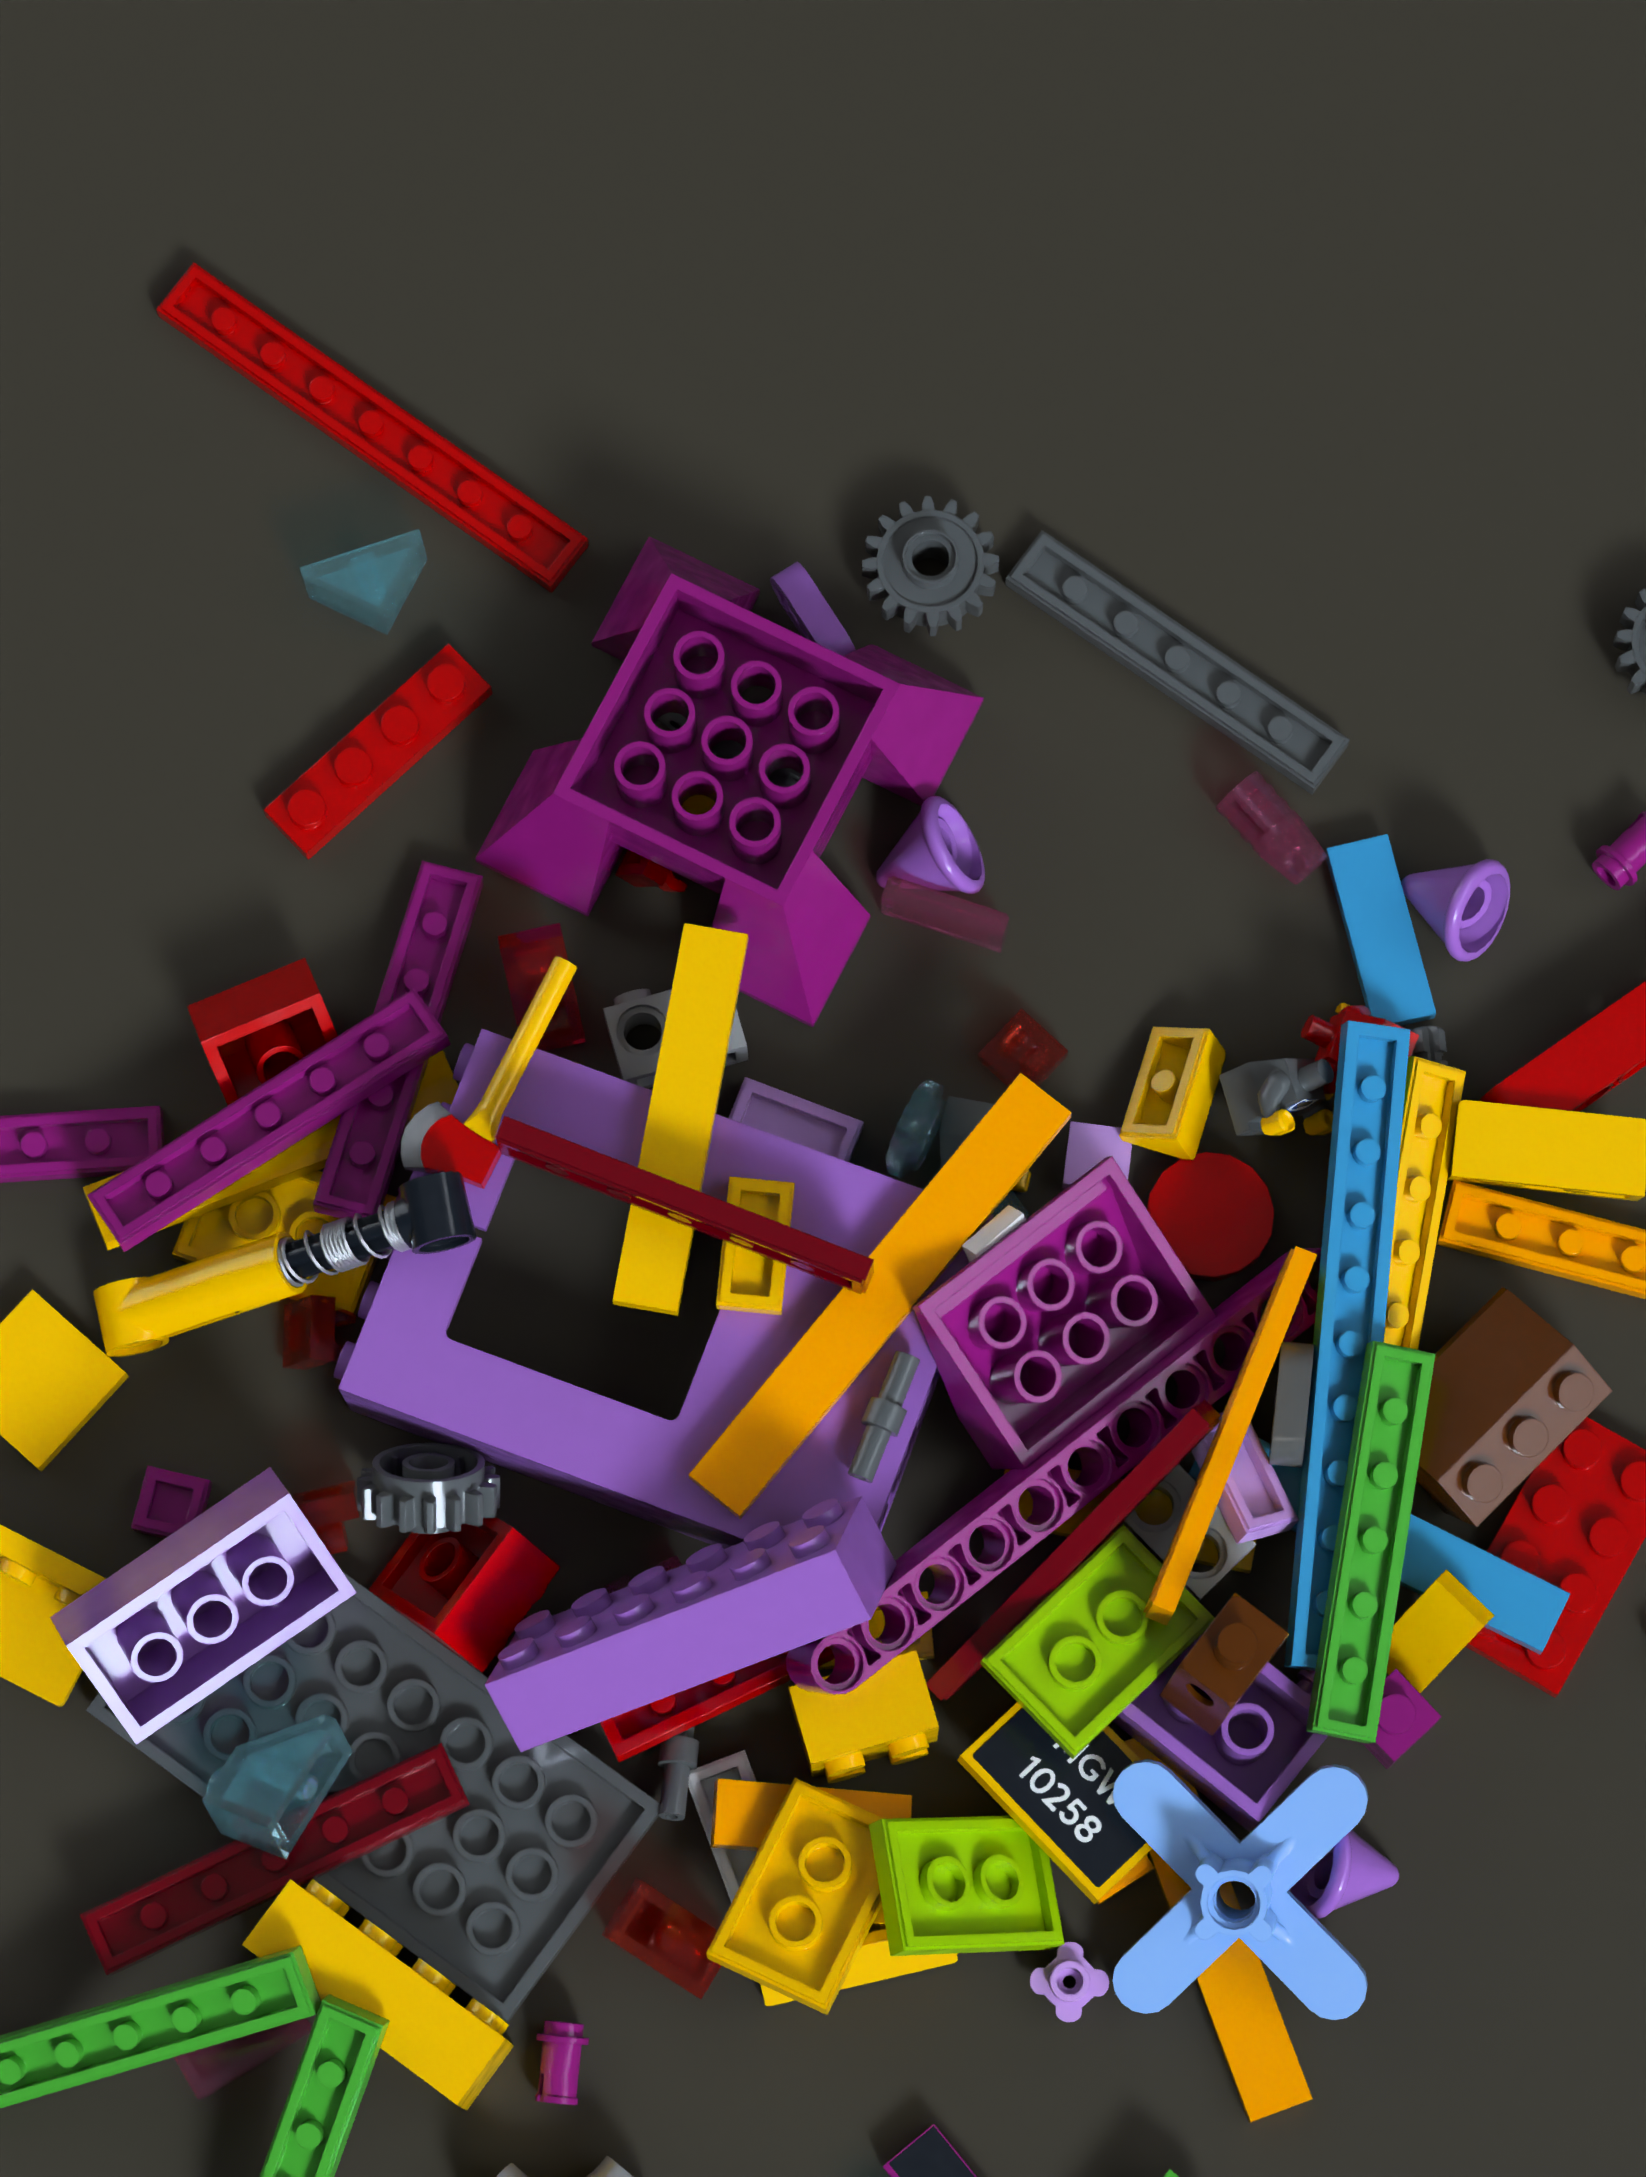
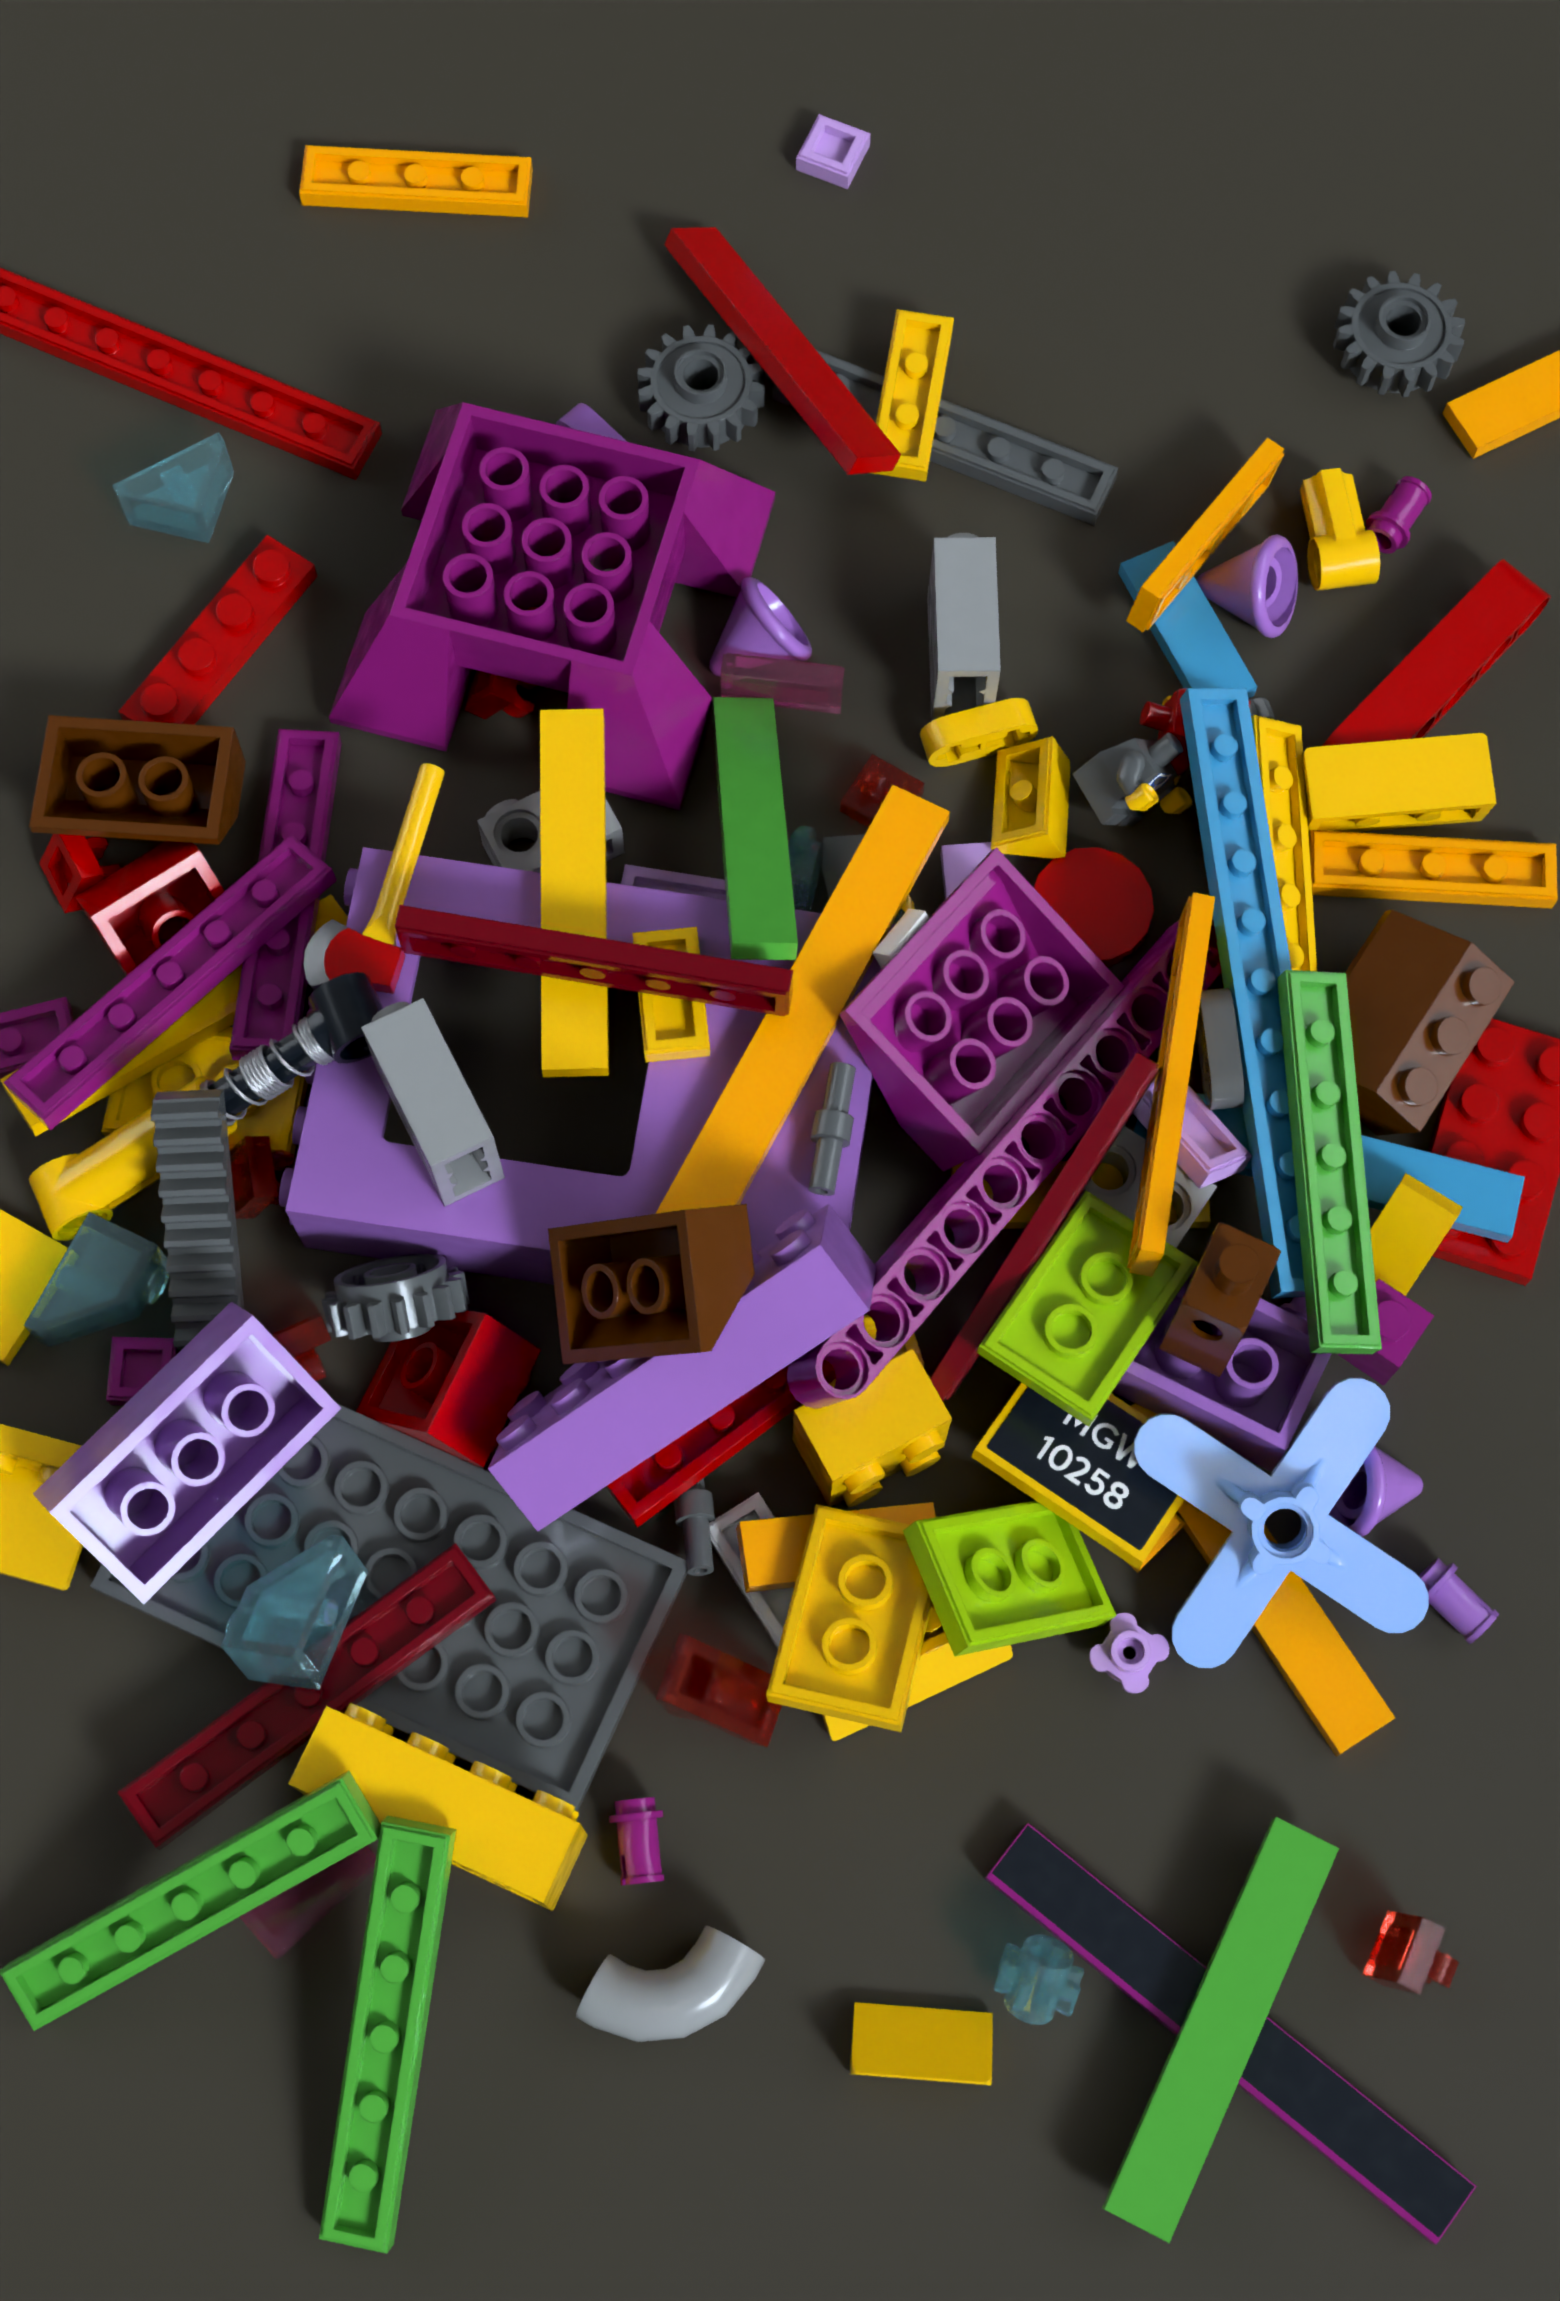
camera: 15 degrees left, 5 degrees down
(144, 1410) = (98, 1283): none -> clear light blue slope
(190, 971) = (73, 867): none -> red tile
(253, 1367) = (196, 1207): none -> dark grey gear
(270, 902) = (138, 780): none -> reddish brown slope
(499, 1317) = (433, 1100): none -> light grey brick
(525, 961) = (391, 790): clear red slope -> none
(670, 1544) = (649, 1282): none -> reddish brown slope
(679, 262) = (416, 181): none -> light orange tile
(876, 1077) = (753, 830): none -> bright green tile
(1021, 544) = (782, 351): none -> red tile
(1130, 311) = (833, 151): none -> lavender tile
(1135, 1007) = (978, 732): none -> yellow beam
(1140, 899) = (963, 624): none -> light grey brick
(1148, 618) = (914, 389): none -> yellow tile
(1272, 828) = (1066, 554): clear pink hinge -> none
(1399, 1997) = (1457, 1601): none -> medium lavender pin
(1418, 841) = (1205, 536): none -> light orange tile
(1560, 876) = (1339, 546): none -> yellow piece

